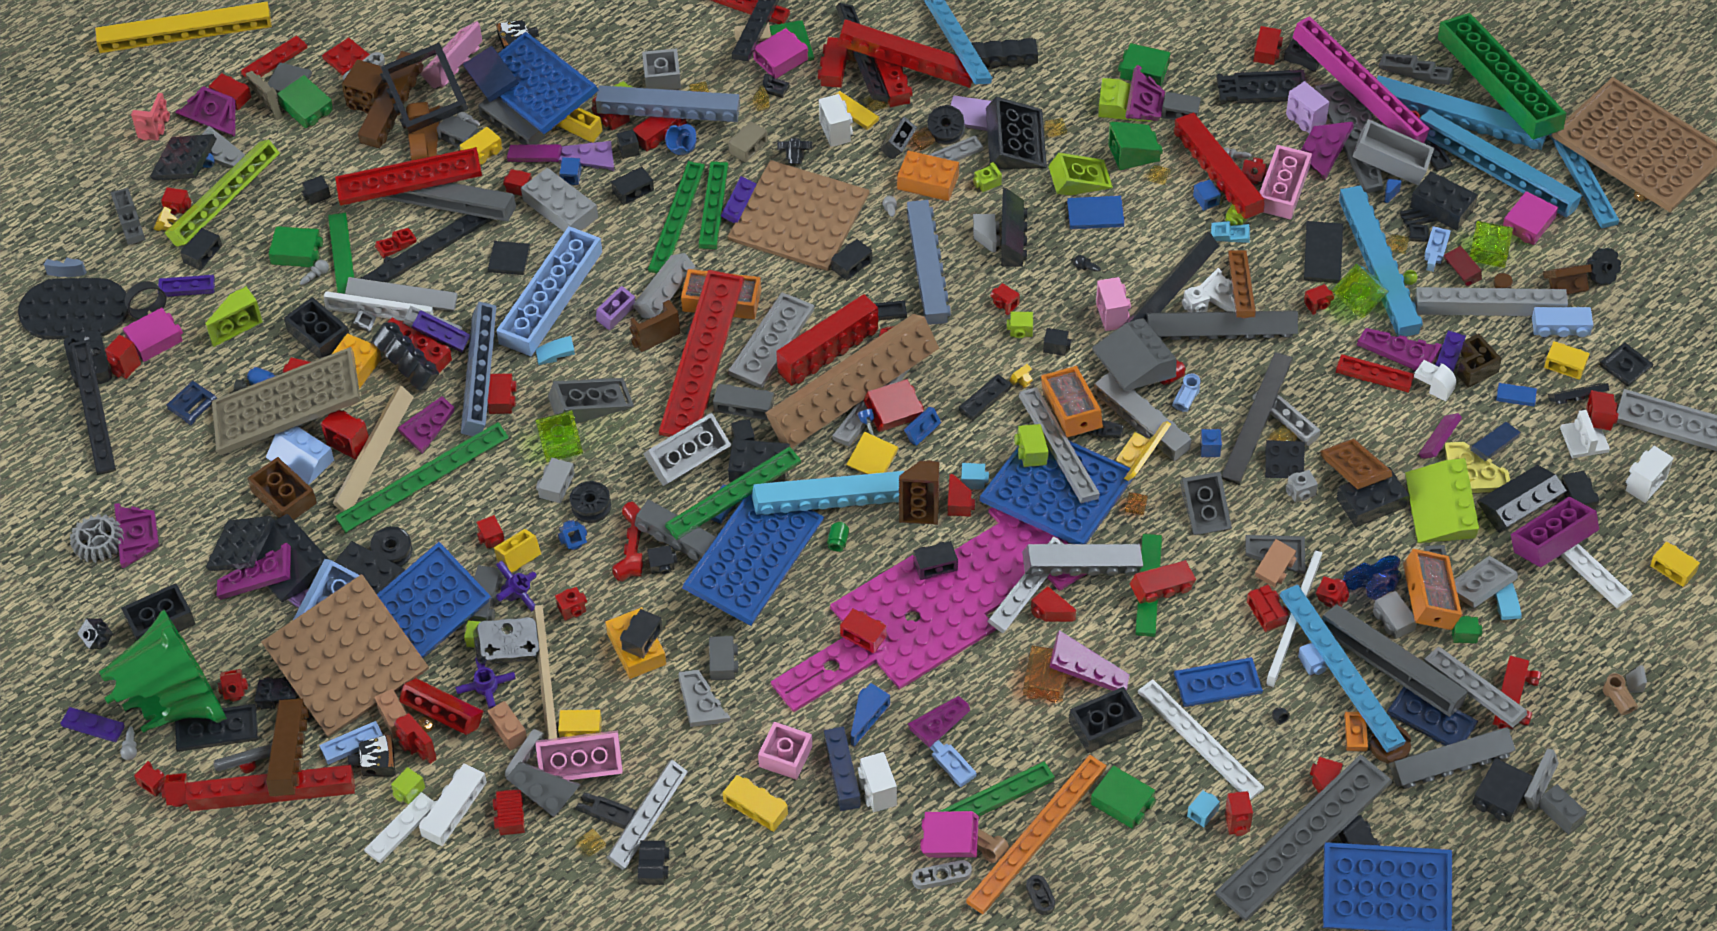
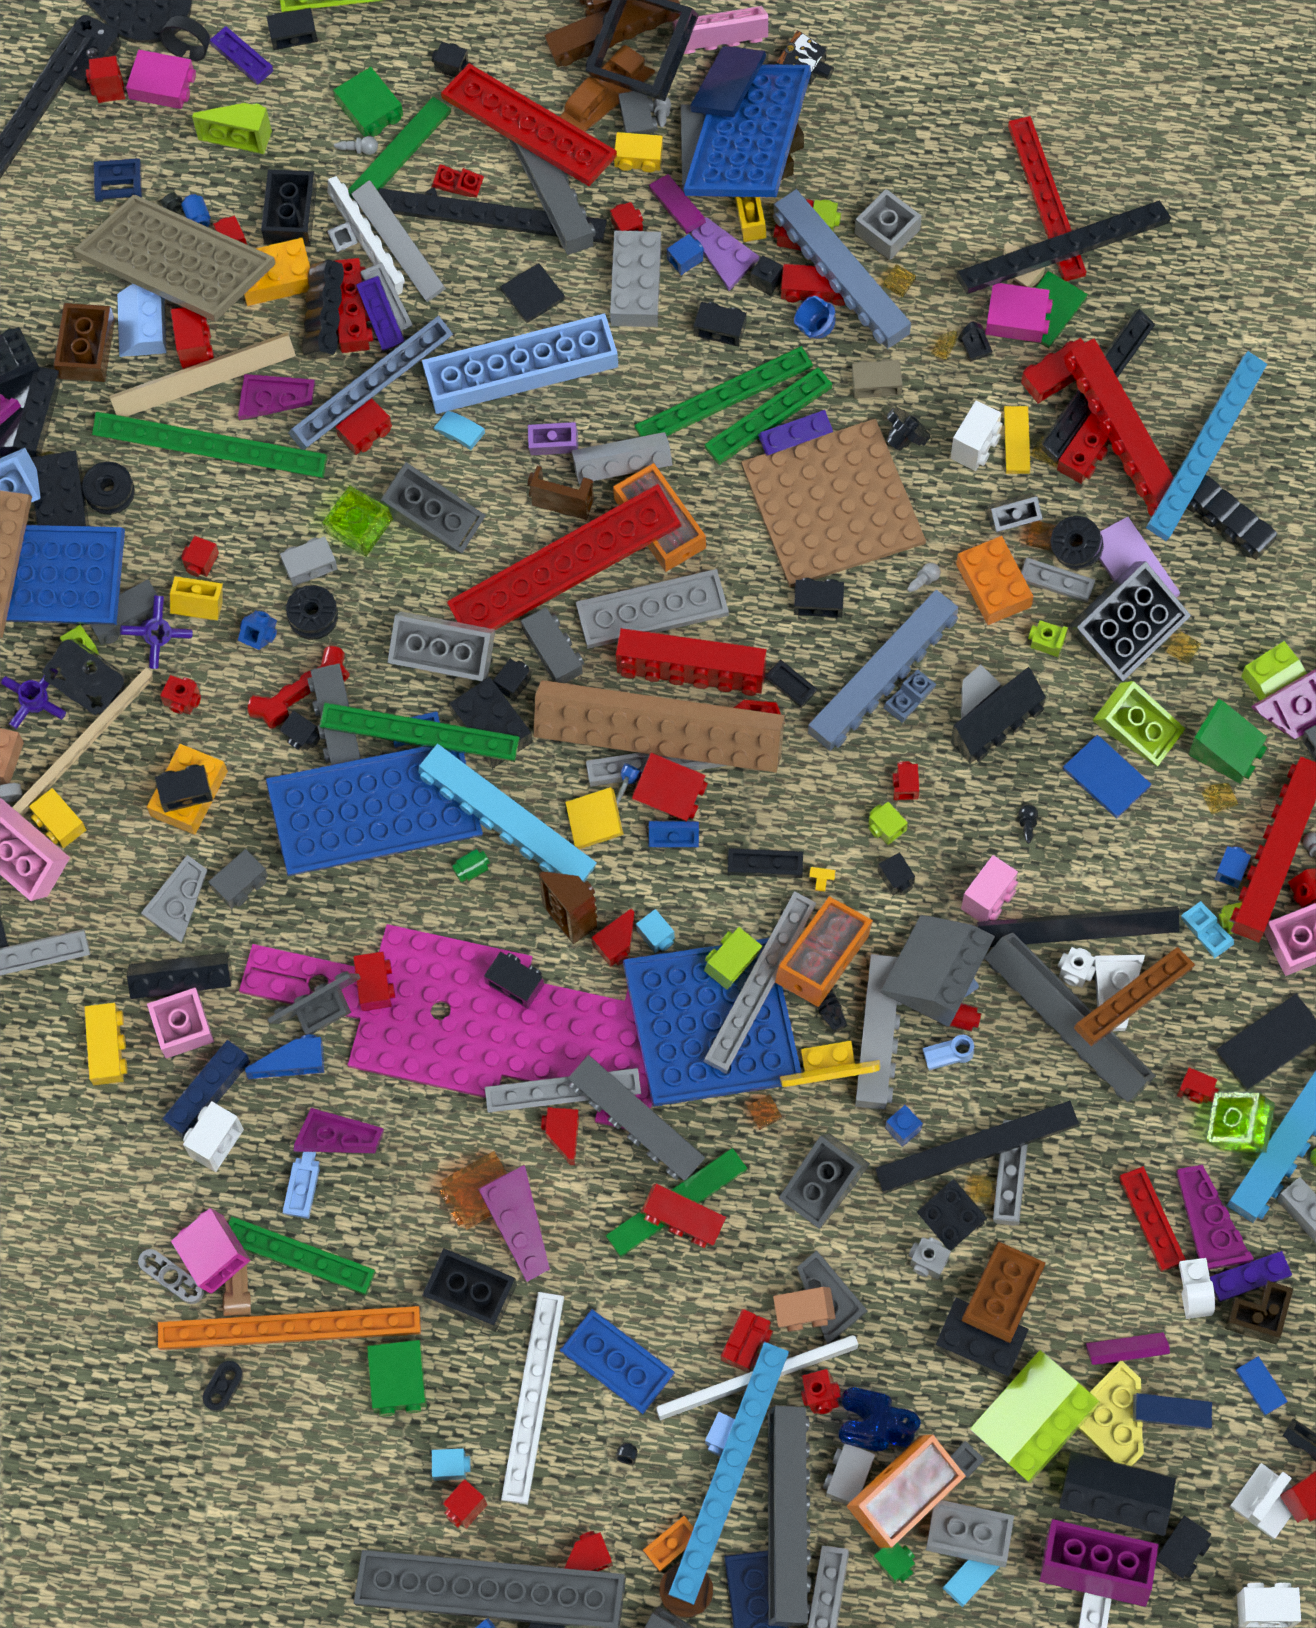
camera: 50 degrees right, 15 degrees up
(753, 730) = (179, 975): none -> black brick
(853, 668) = (319, 1008): none -> dark grey bracket
(954, 263) = (910, 696): none -> sand blue slope

